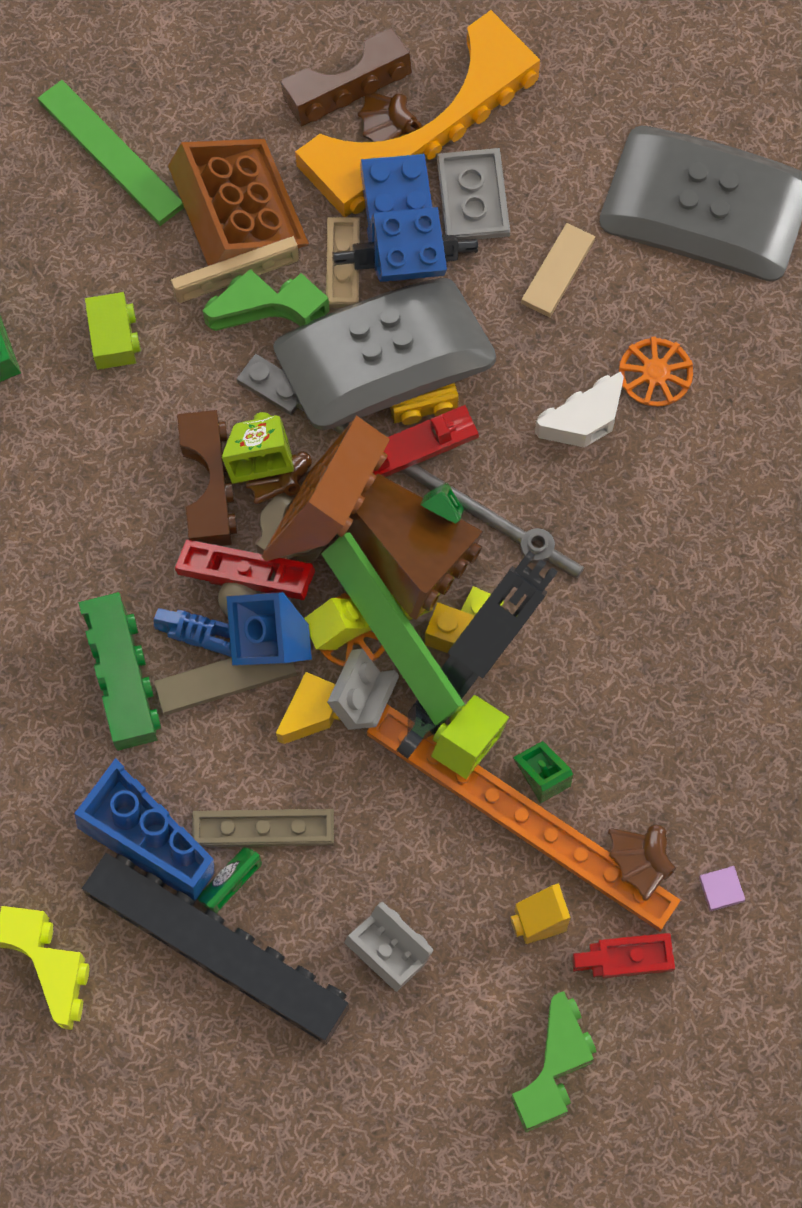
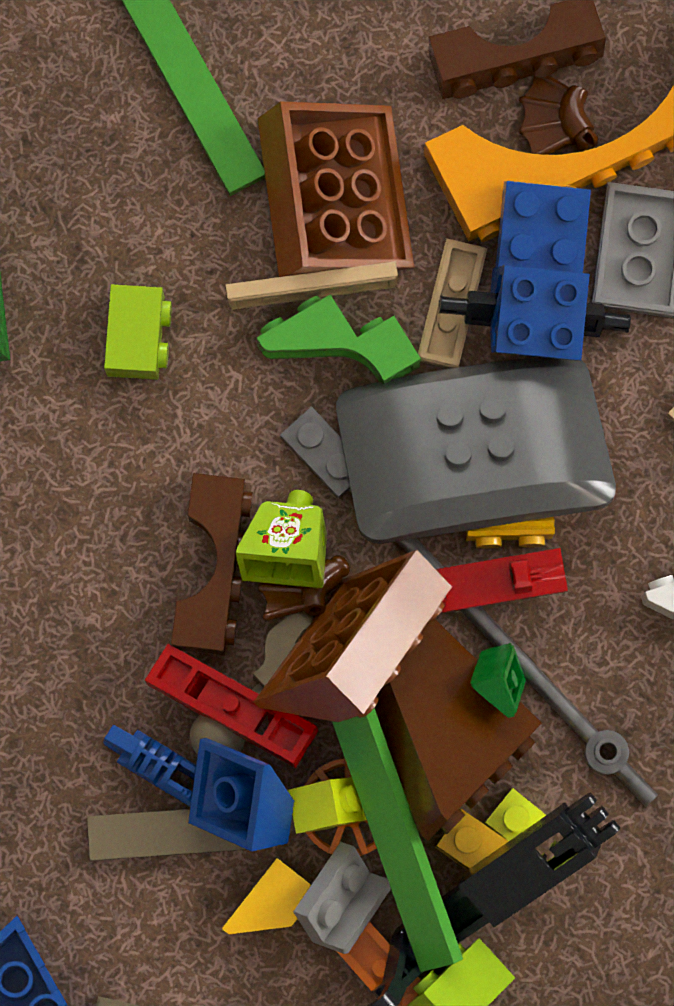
camera: 10 degrees right, 10 degrees up
(120, 671) = (48, 800): green wedge -> none

